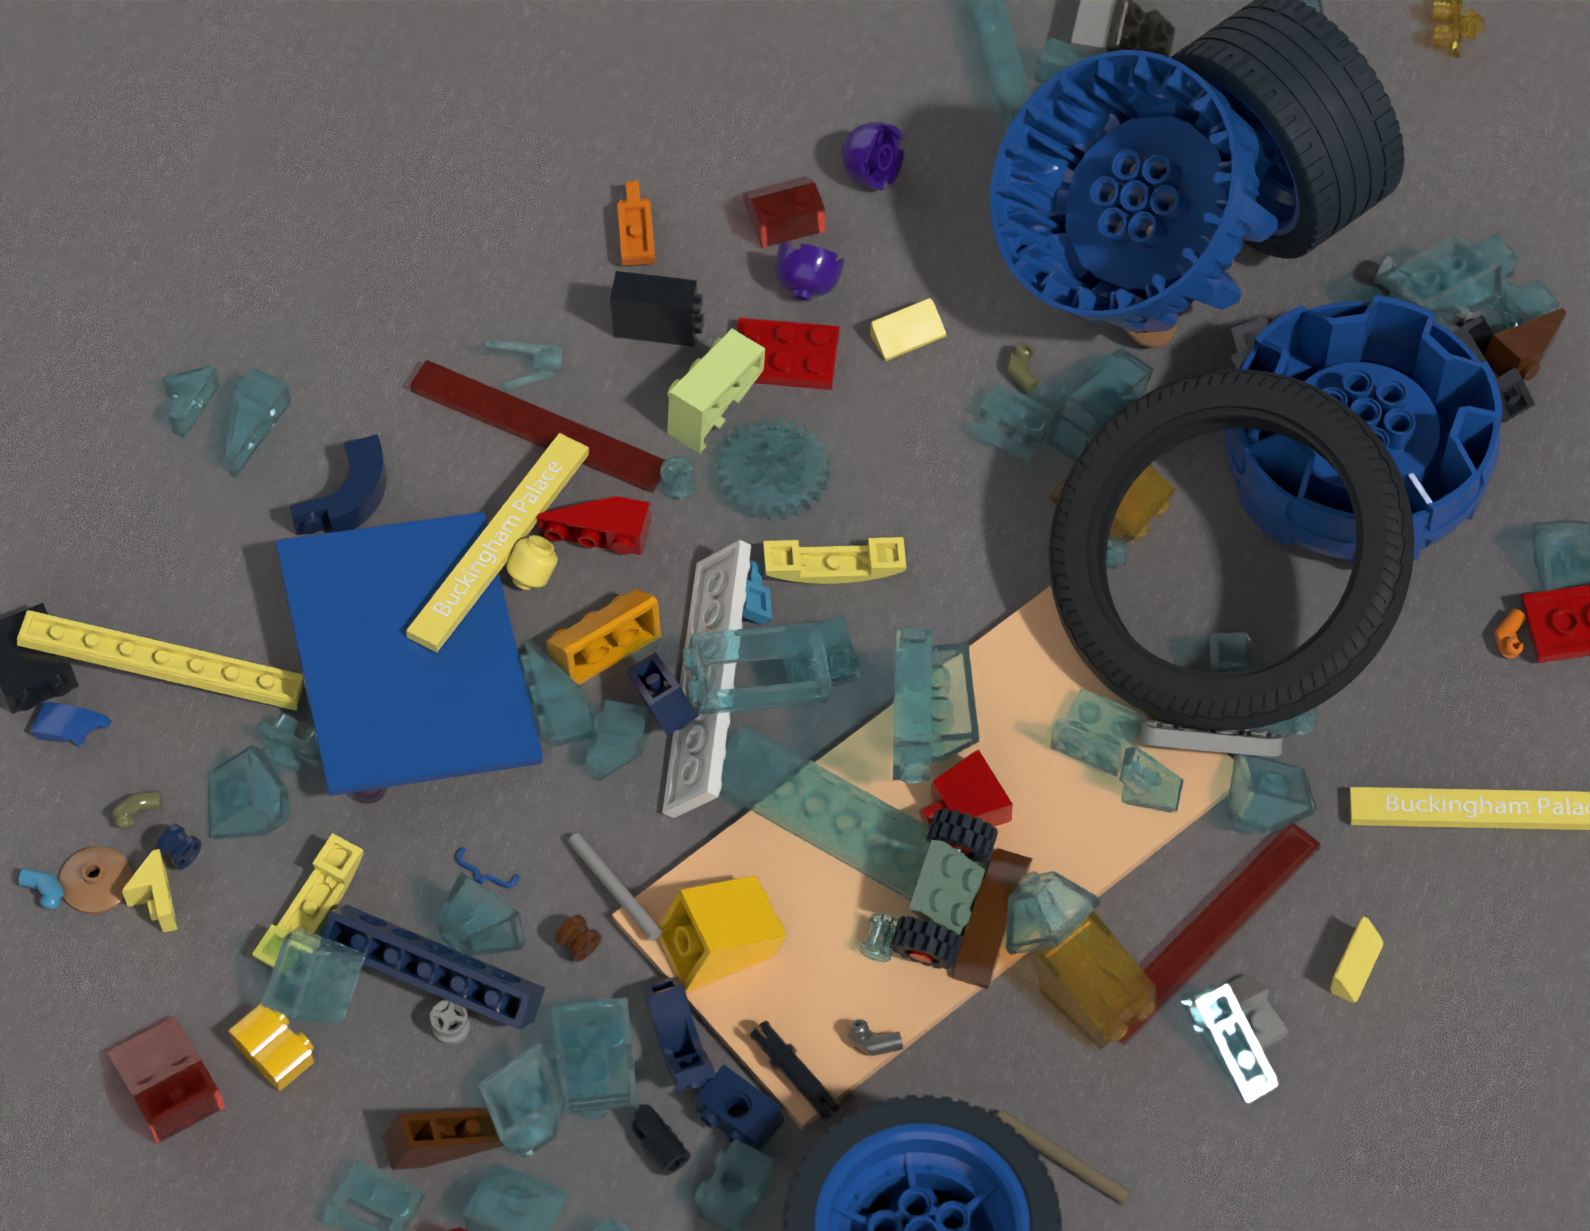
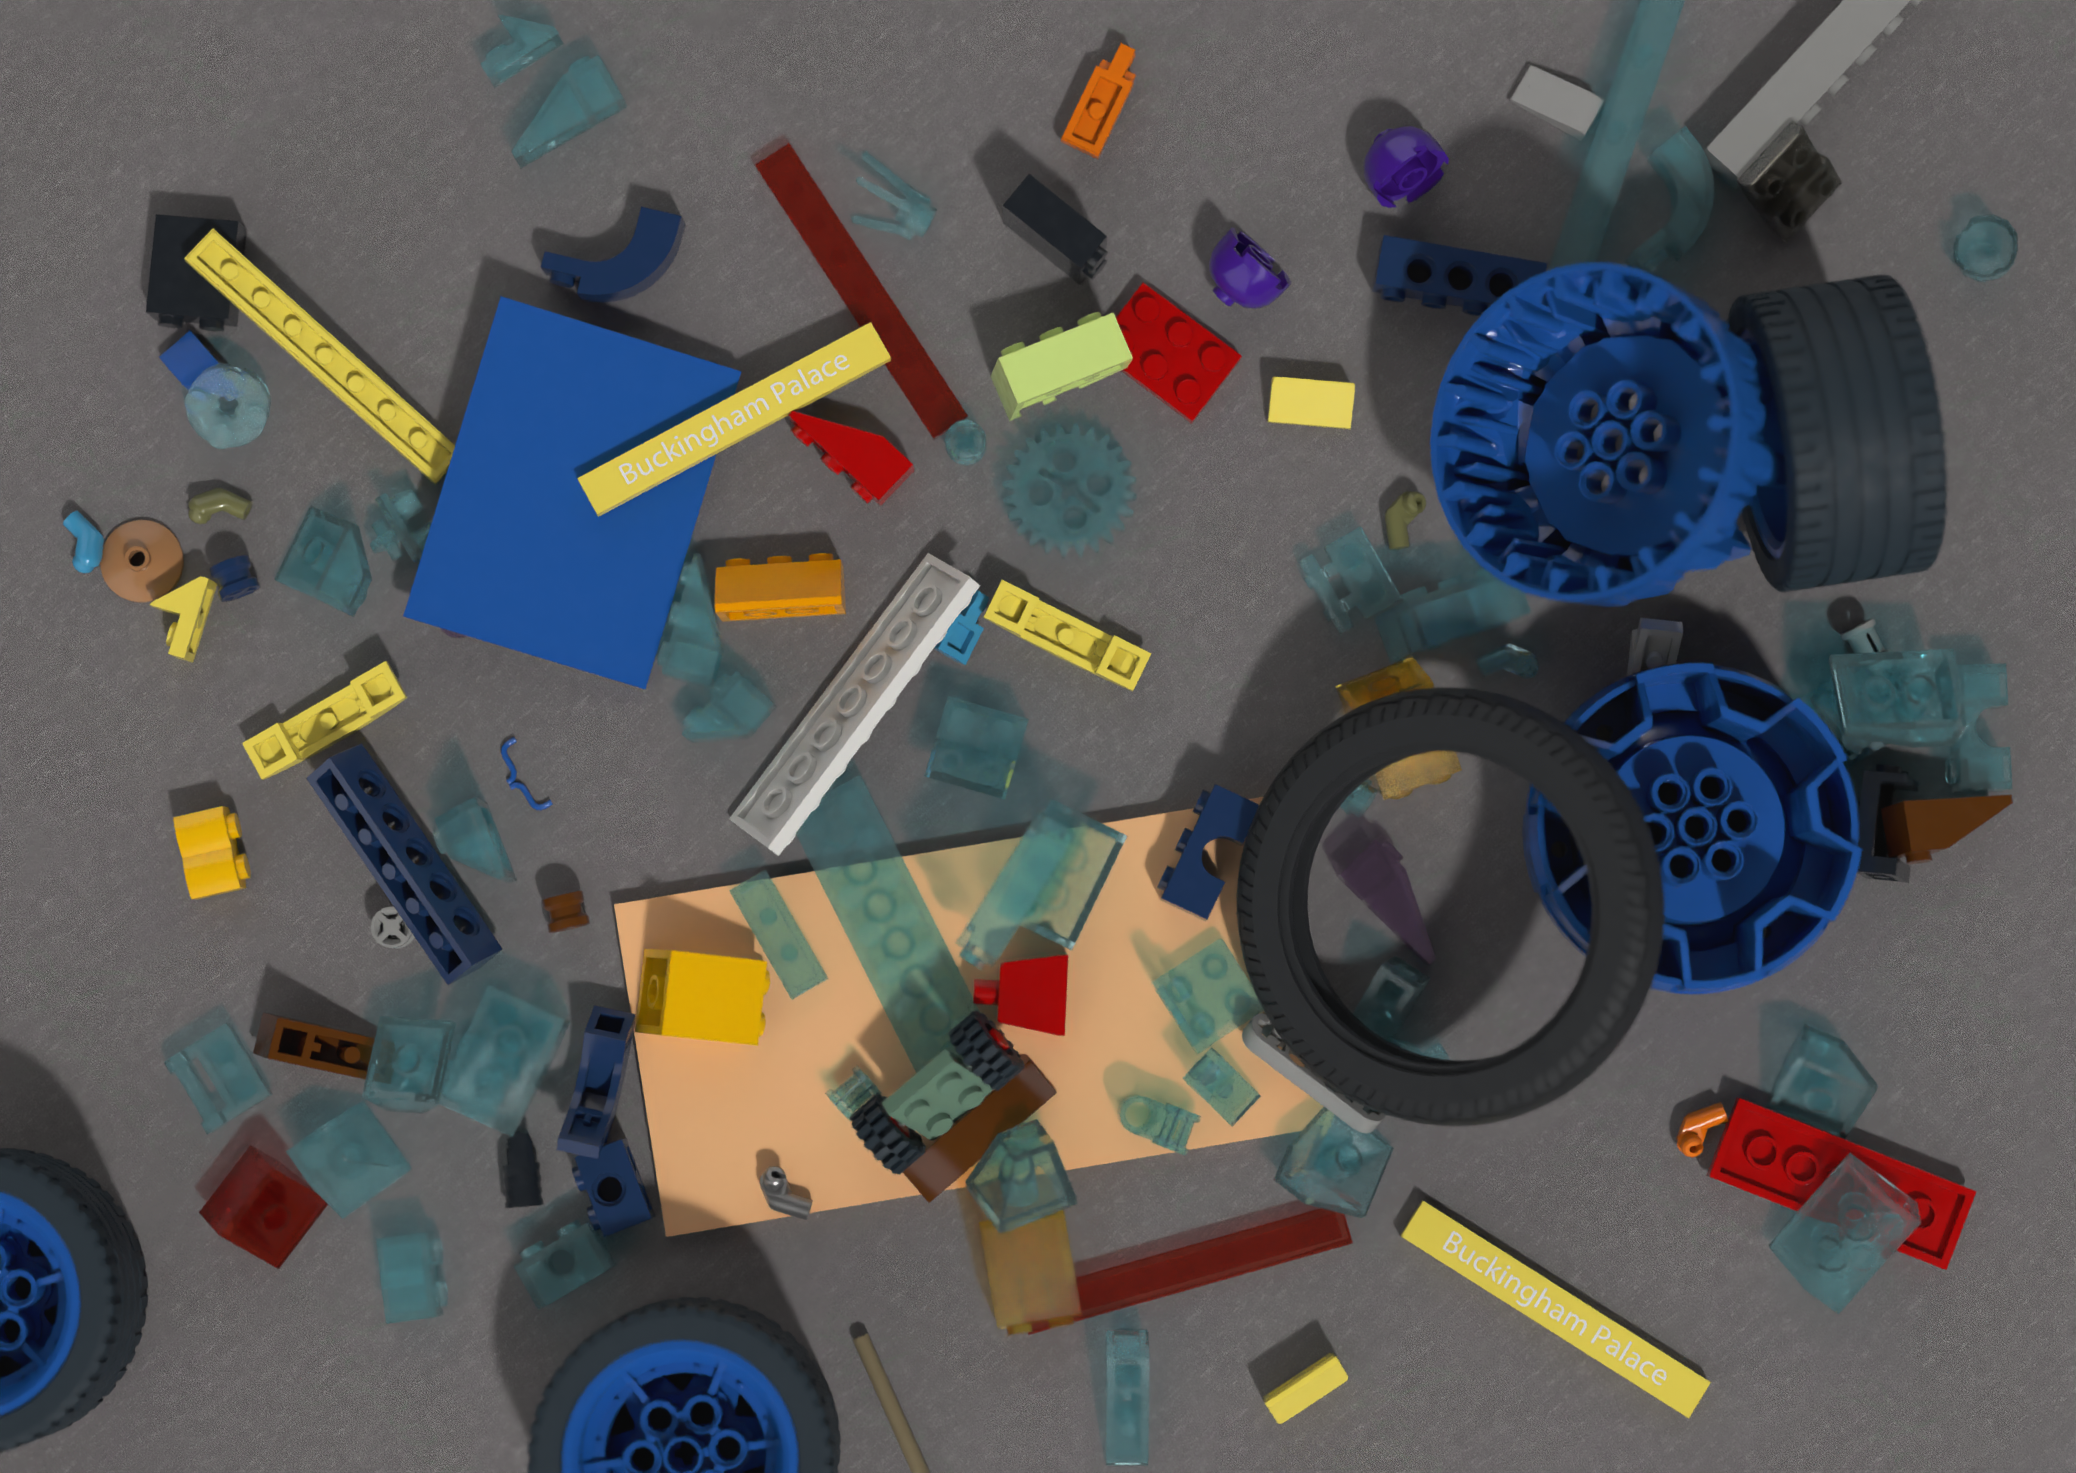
camera: 30 degrees right, 25 degrees up
(110, 751) = (221, 428): none -> clear light blue plate
(166, 1079) = (90, 826): clear red slope -> none
(313, 978) = (280, 812): clear light blue slope -> none
(532, 562) = (756, 461): light yellow head -> none
(615, 887) = (632, 877): light grey bar -> none
(661, 693) = (795, 697): dark blue brick -> none
(745, 859) = (778, 934): none -> clear light blue tile
(756, 645) = (849, 694): clear light blue piece -> none
(784, 1057) = (688, 1182): black pin -> none
(785, 211) = (1272, 172): clear red slope -> none
(941, 208) = (1440, 261): none -> dark blue brick
(952, 74) = (1557, 102): none -> light grey slope
(1036, 663) = (1221, 817): none -> dark blue arch
(1123, 833) = (1161, 1123): none -> clear light blue piece
(1181, 601) = (1387, 891): none -> clear purple slope
(1259, 1014) = (1170, 1375): light grey slope -> none

